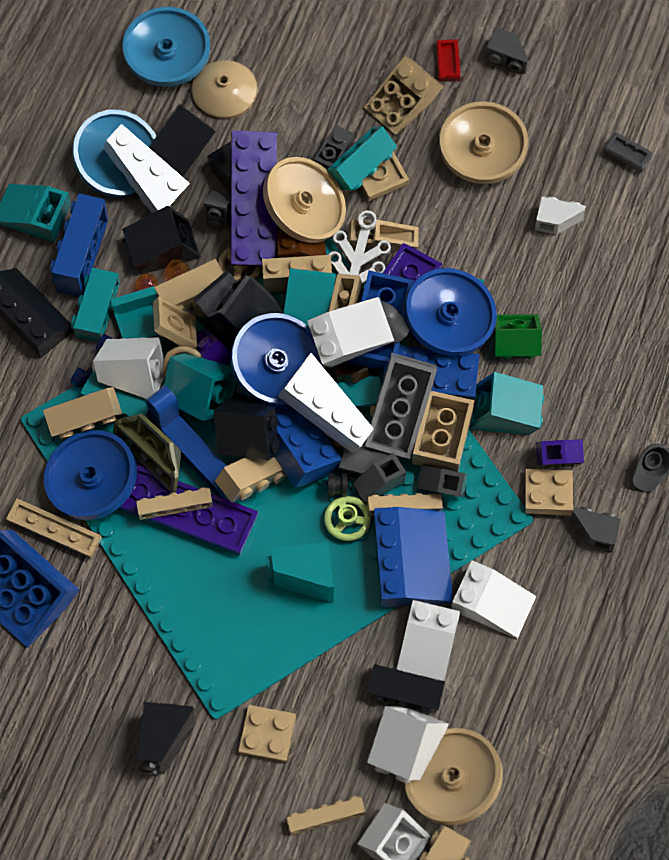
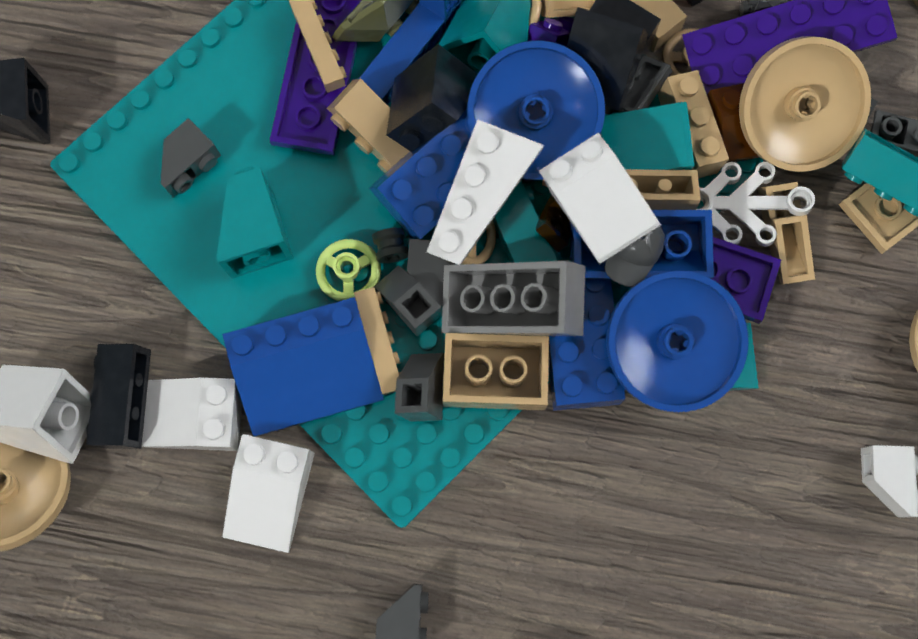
camera: 80 degrees right, 10 degrees up
(237, 614) = (185, 156): none -> dark grey slope
(267, 733) = (38, 232): tan plate -> none
(507, 405) = (564, 459): teal slope -> none
(517, 336) = (680, 451): green slope -> none
(549, 491) = (446, 543): tan plate -> none
(559, 452) = (507, 548): dark purple slope -> none

